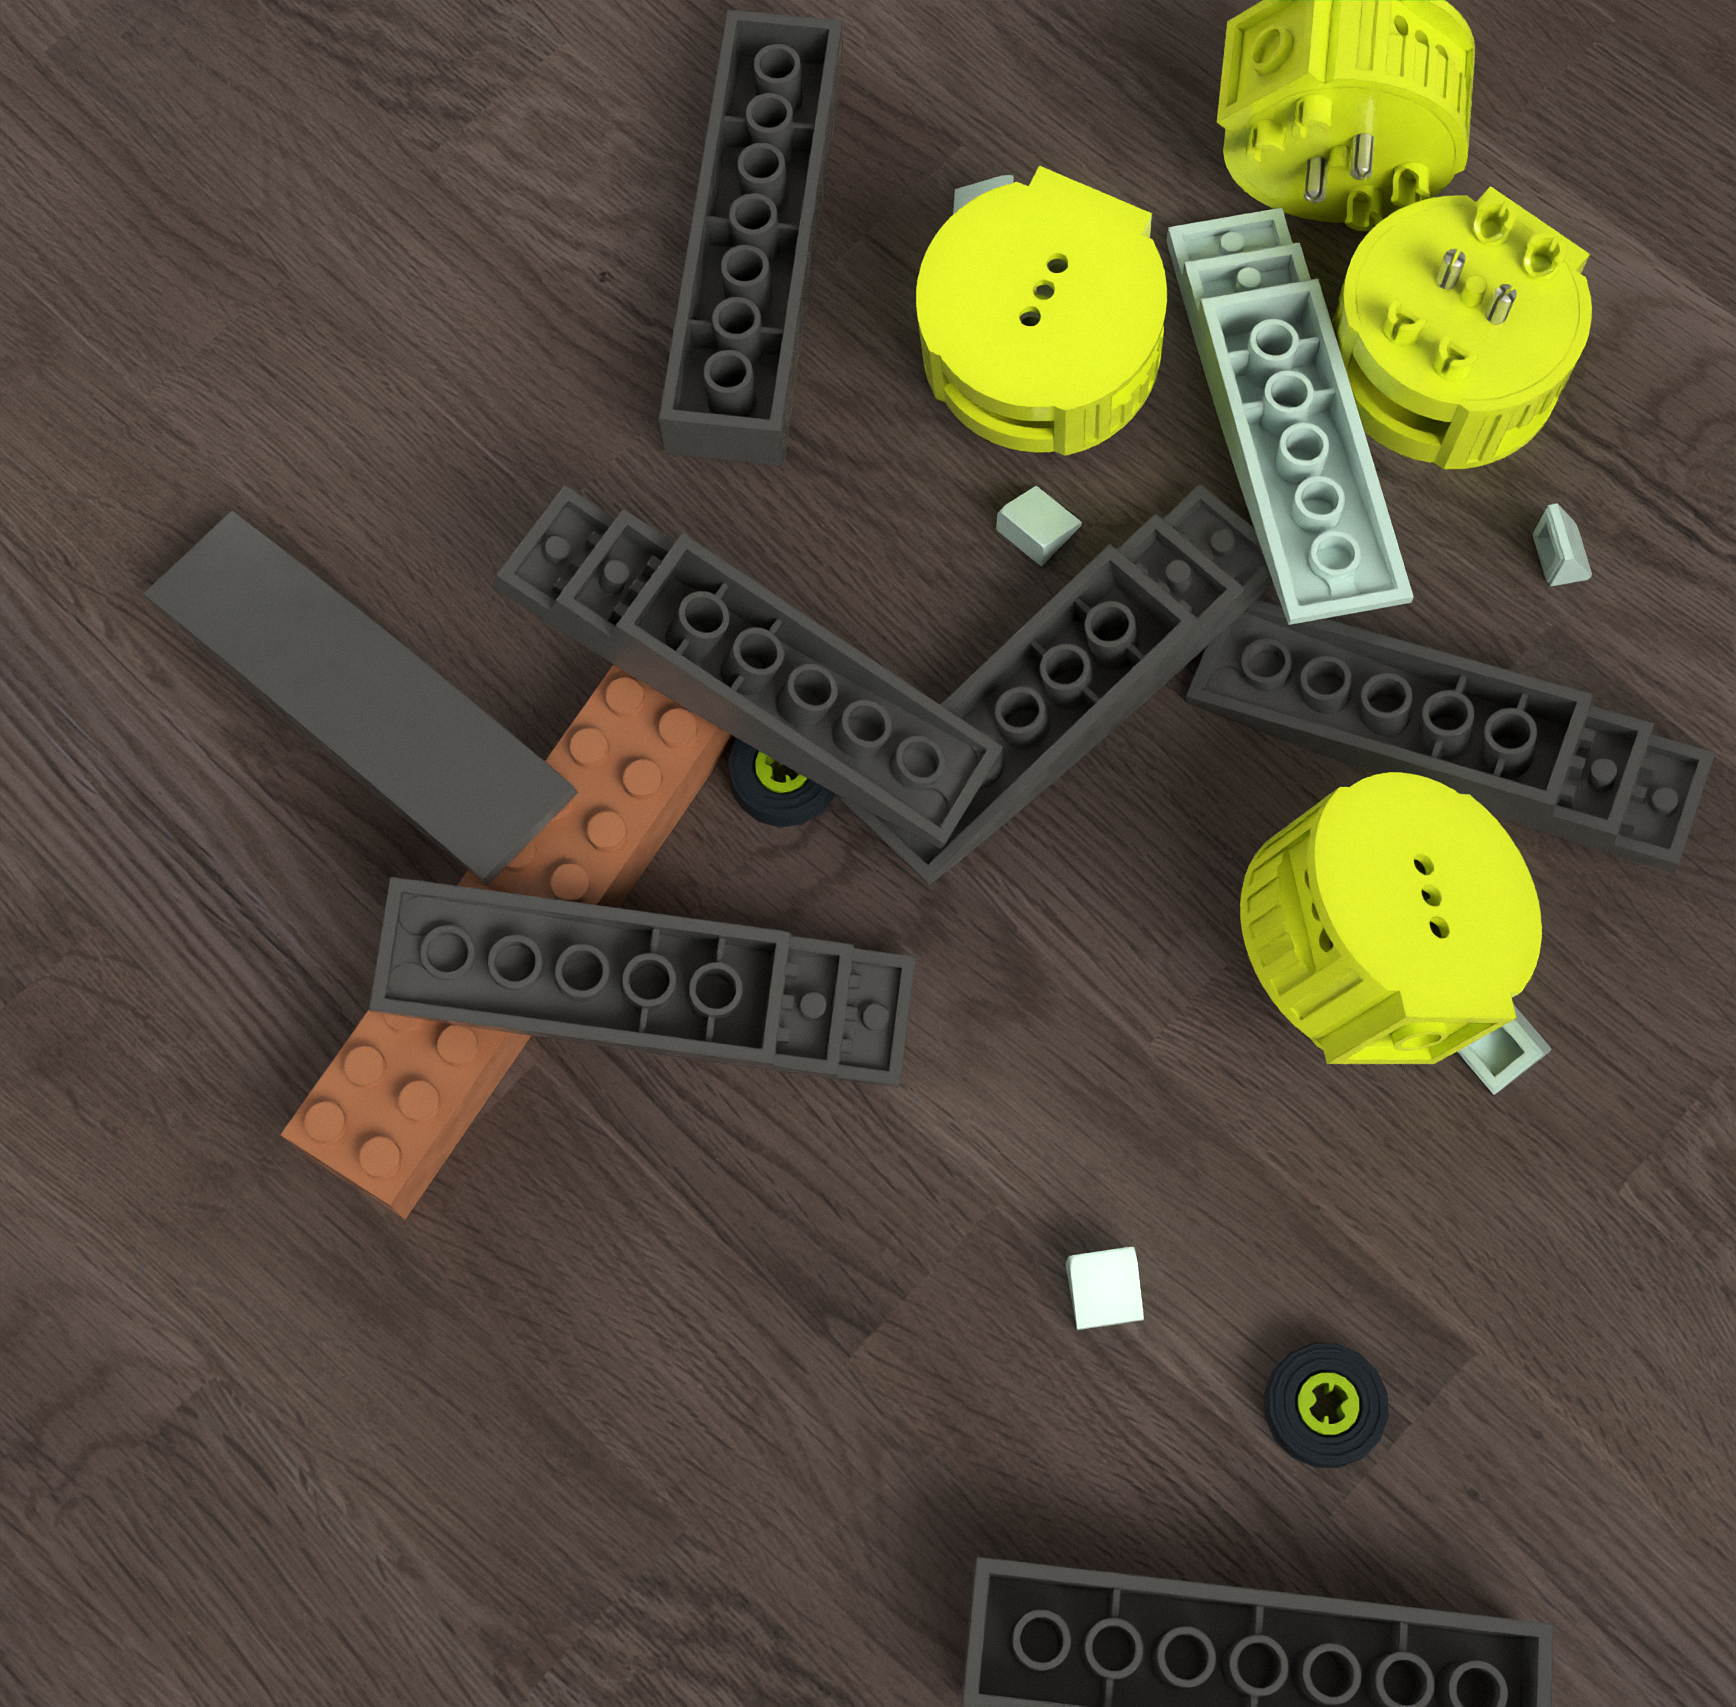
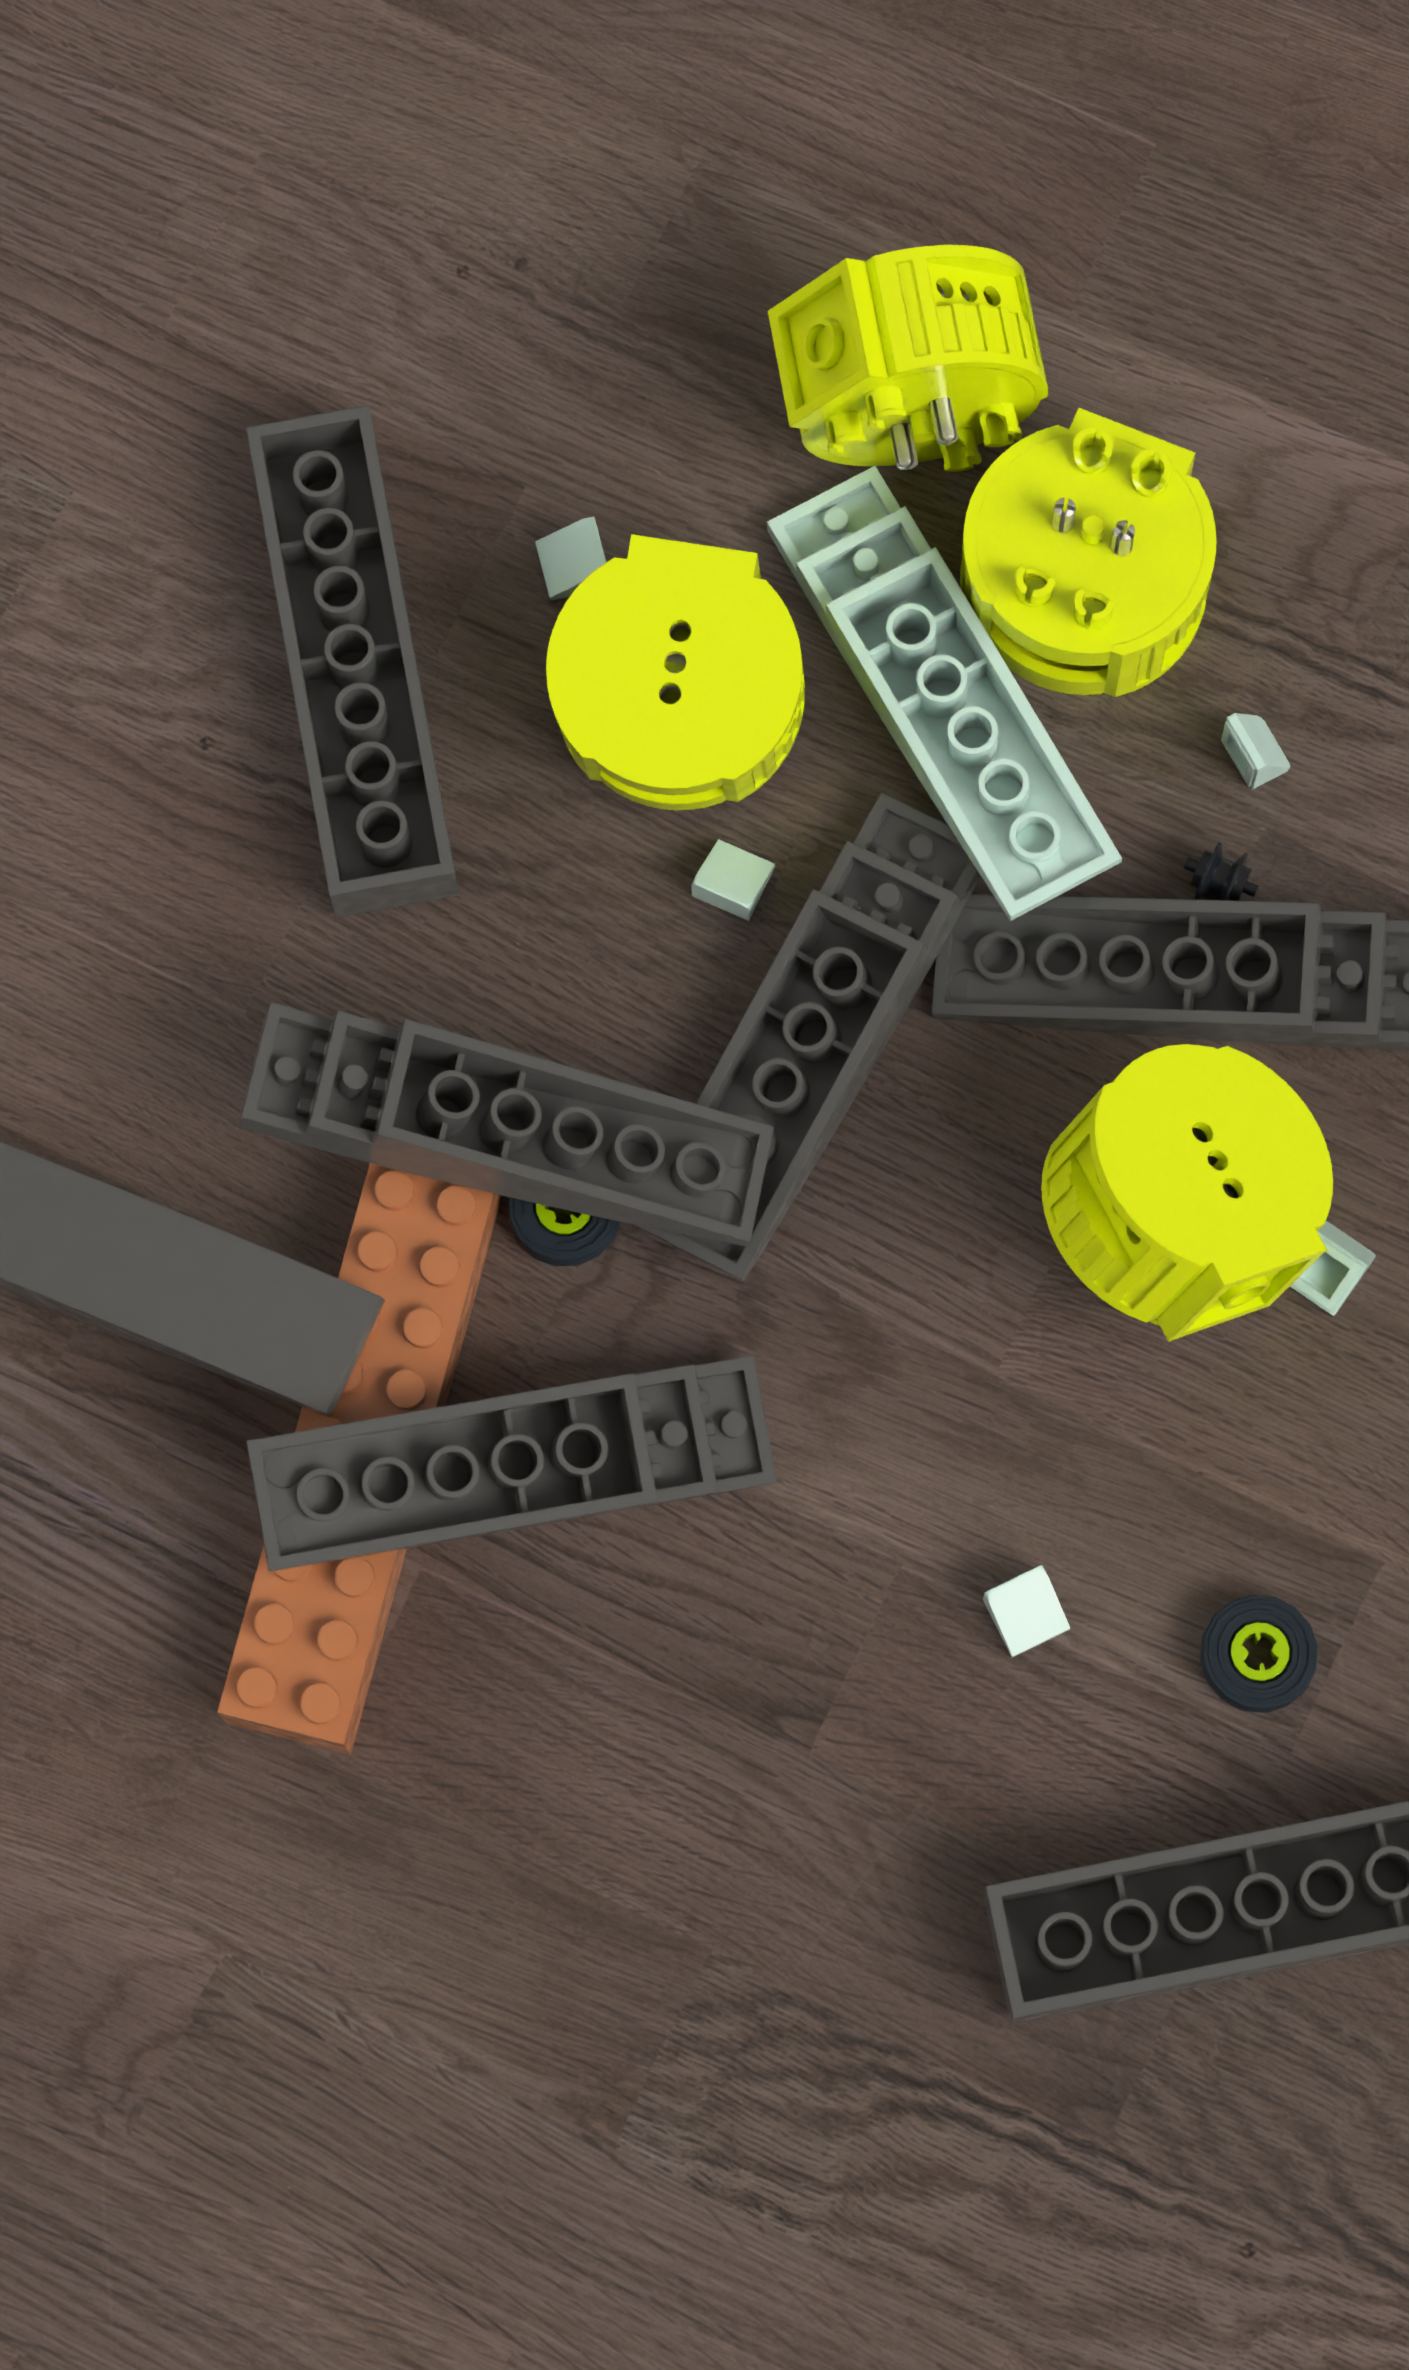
camera: 15 degrees left, 5 degrees up
(1499, 648) = (1221, 876): none -> black wheel

